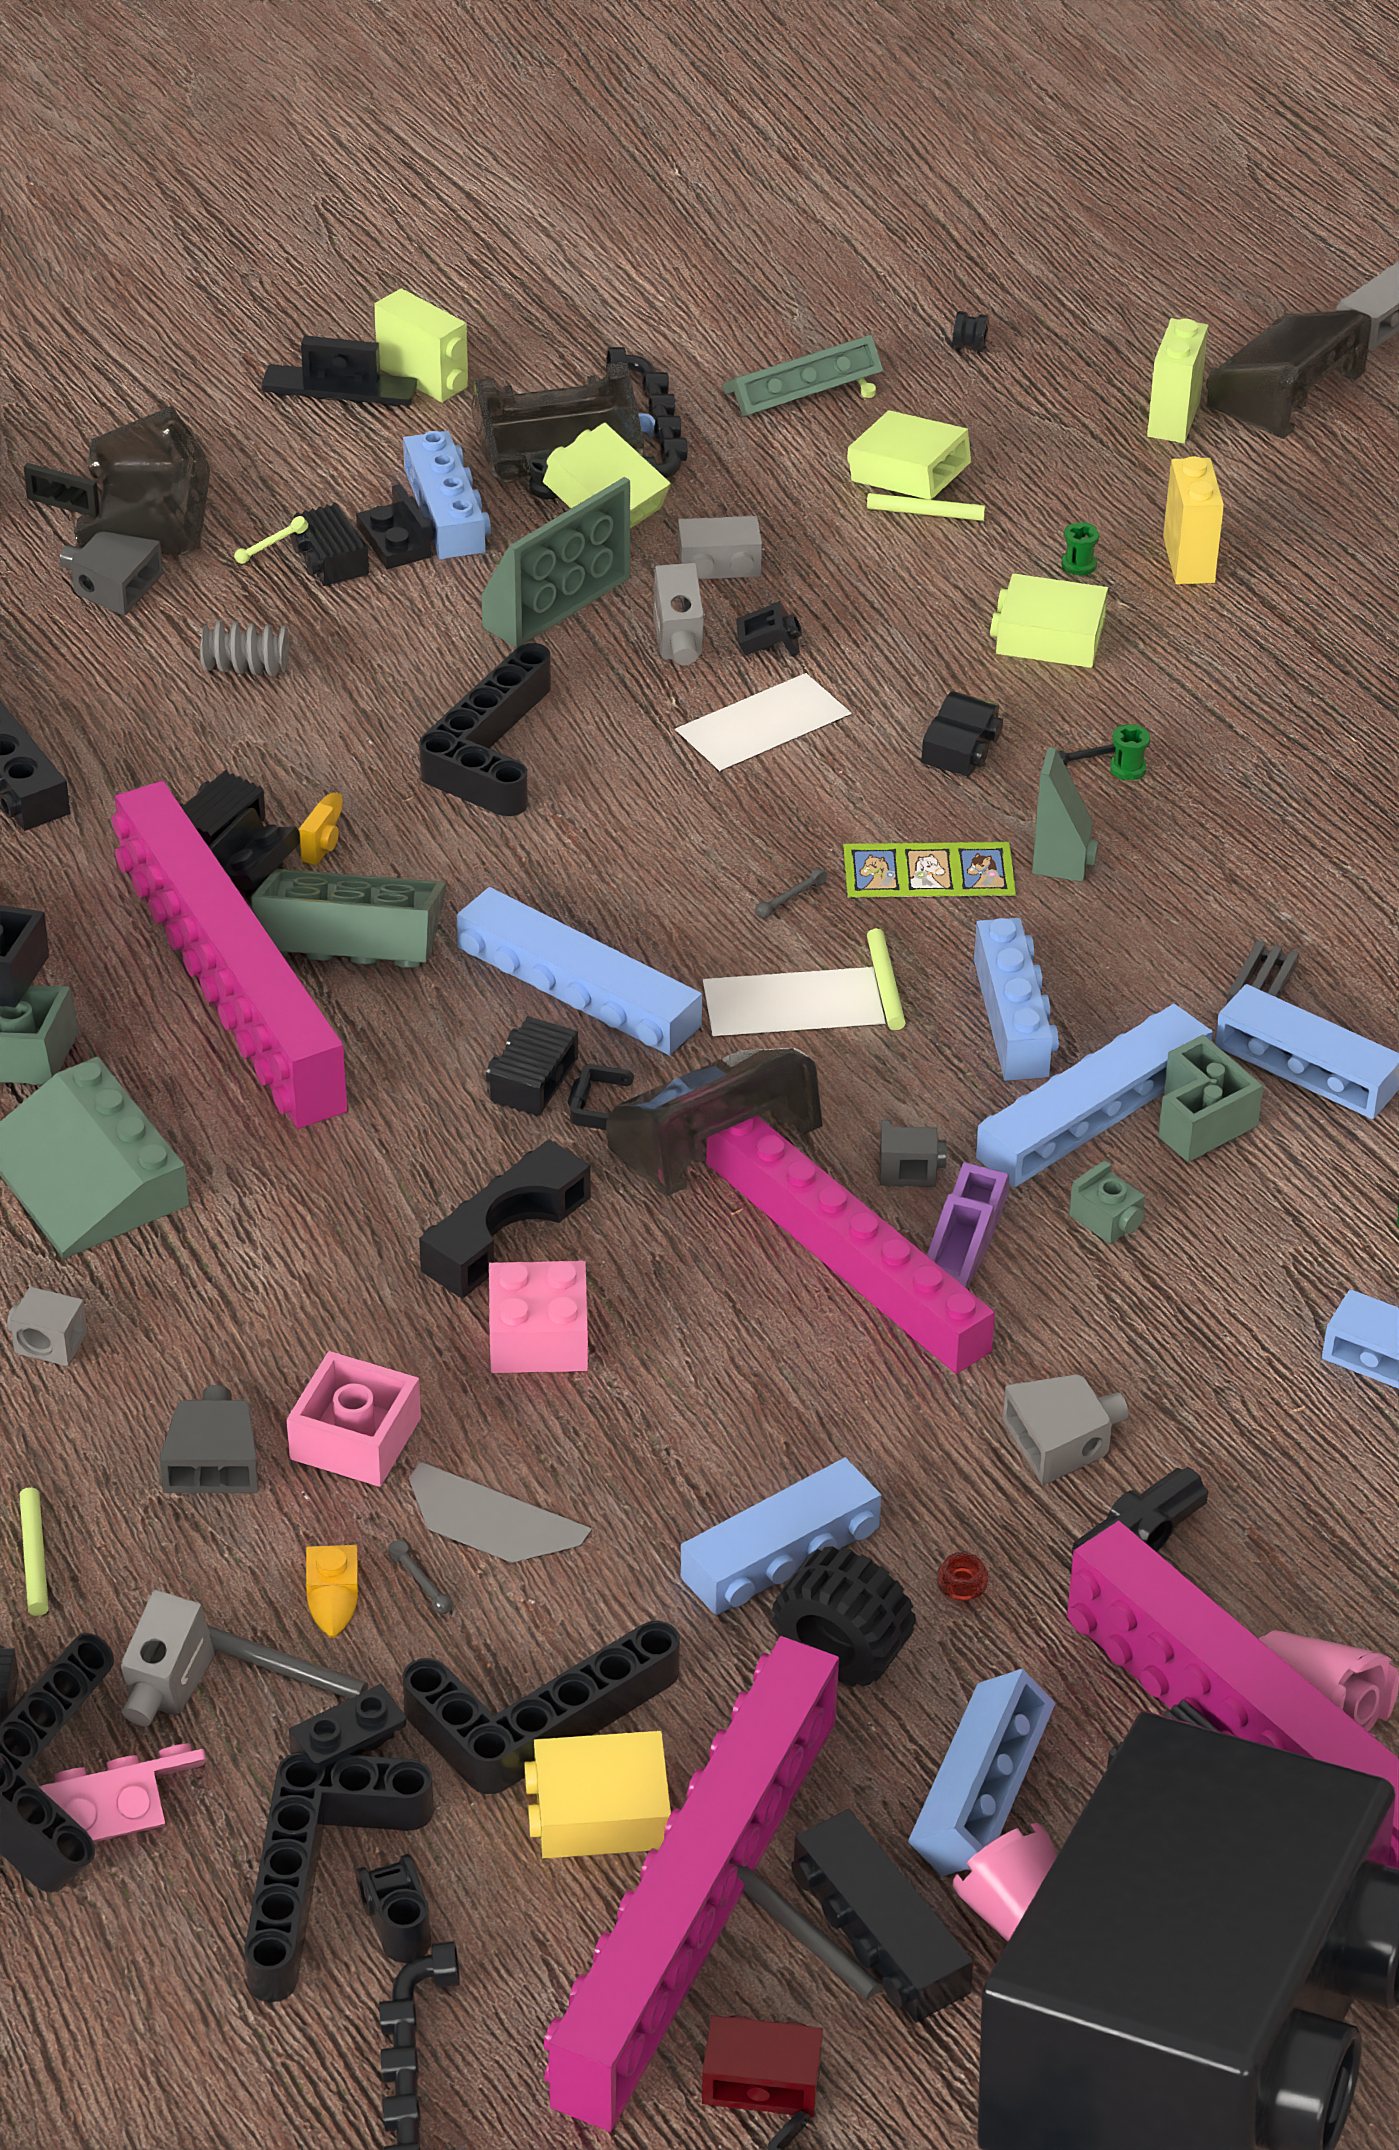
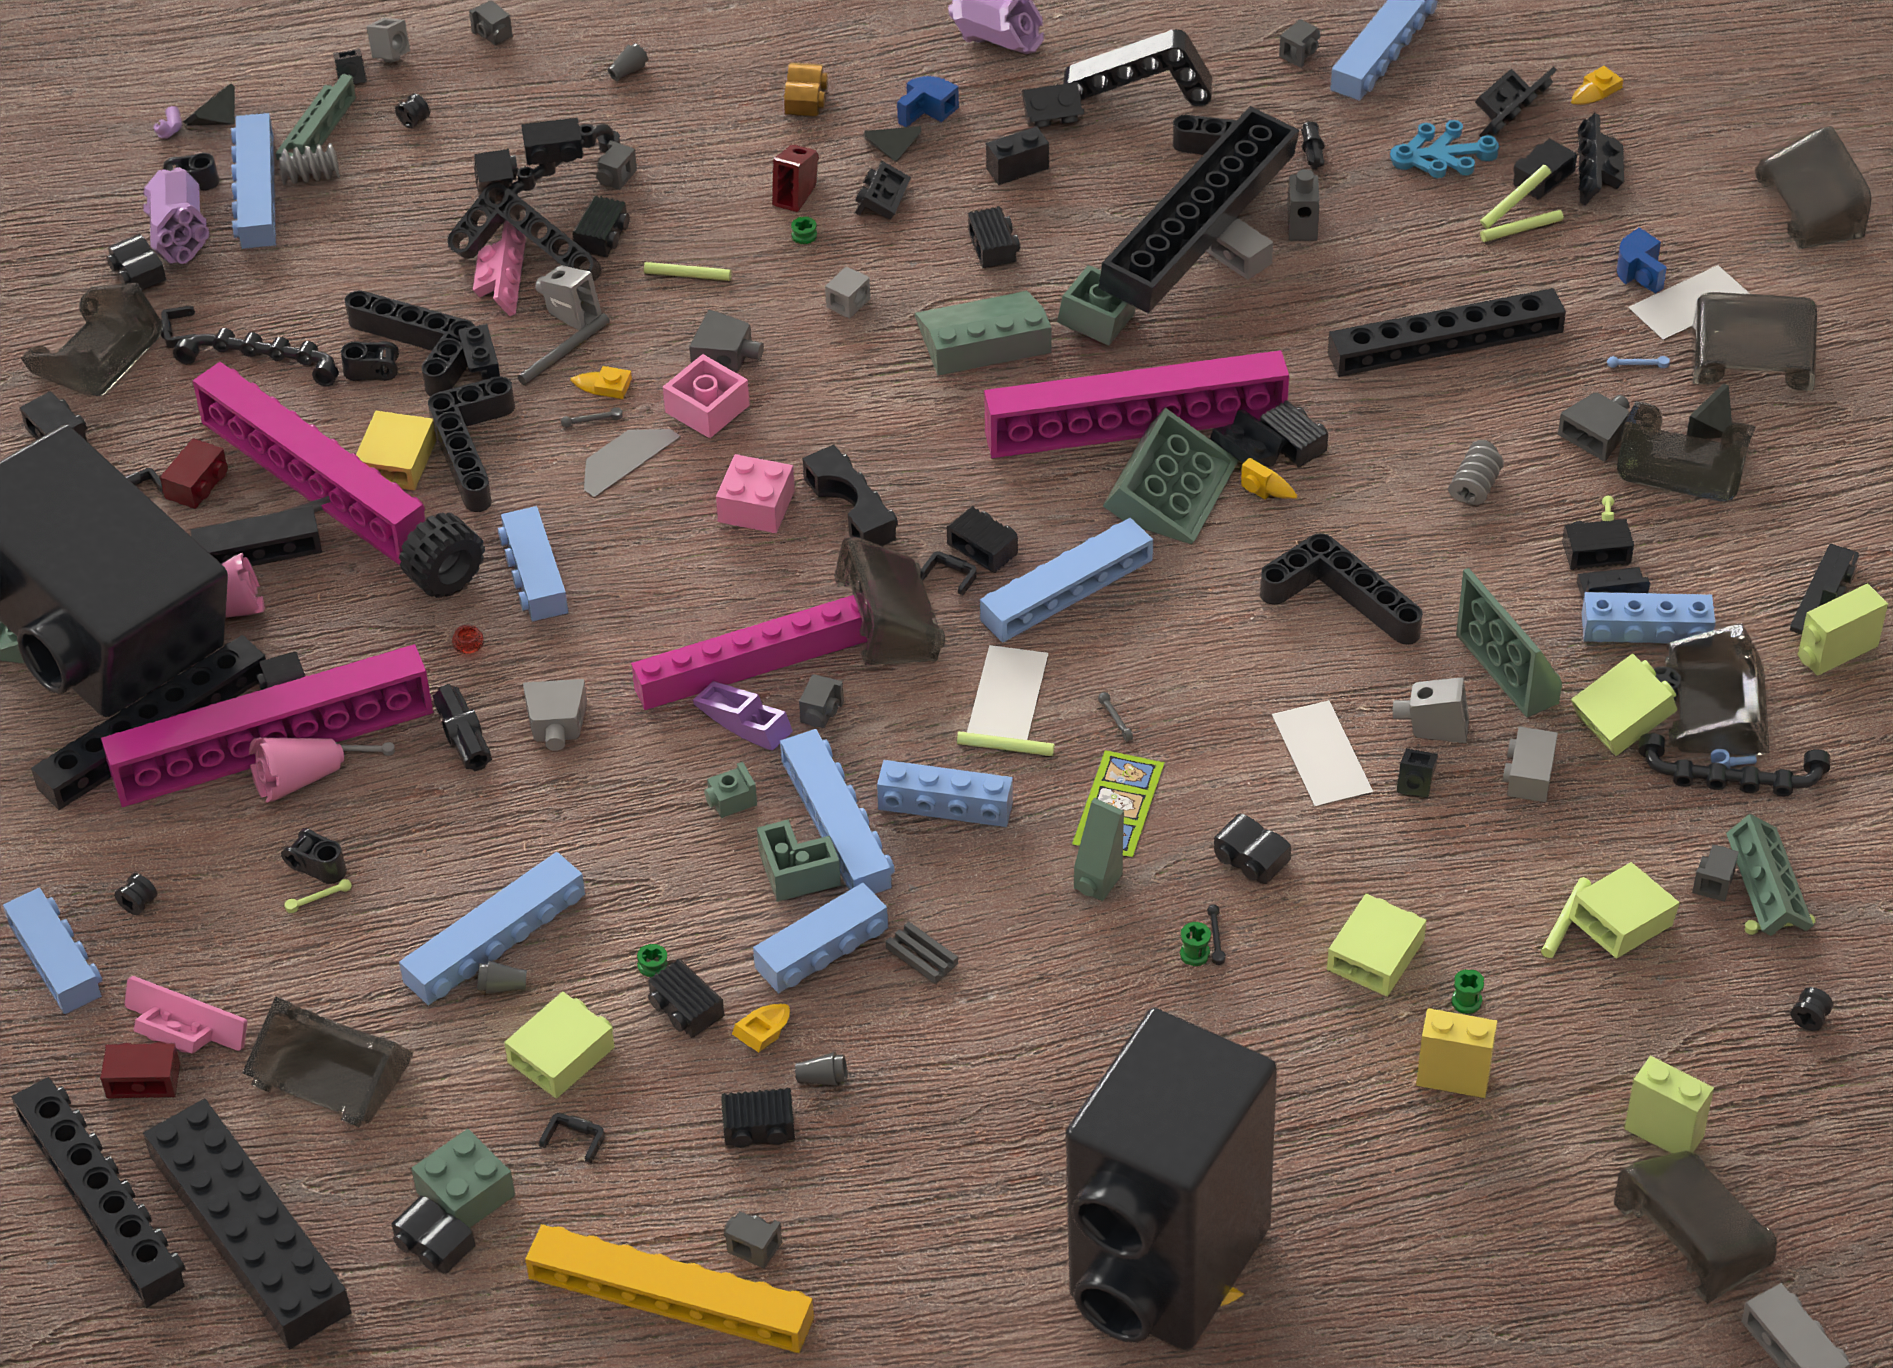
camera: 110 degrees right, 5 degrees up
(814, 406) = (1716, 873): none -> dark grey brick
(982, 1771) = (316, 598): light blue brick -> none

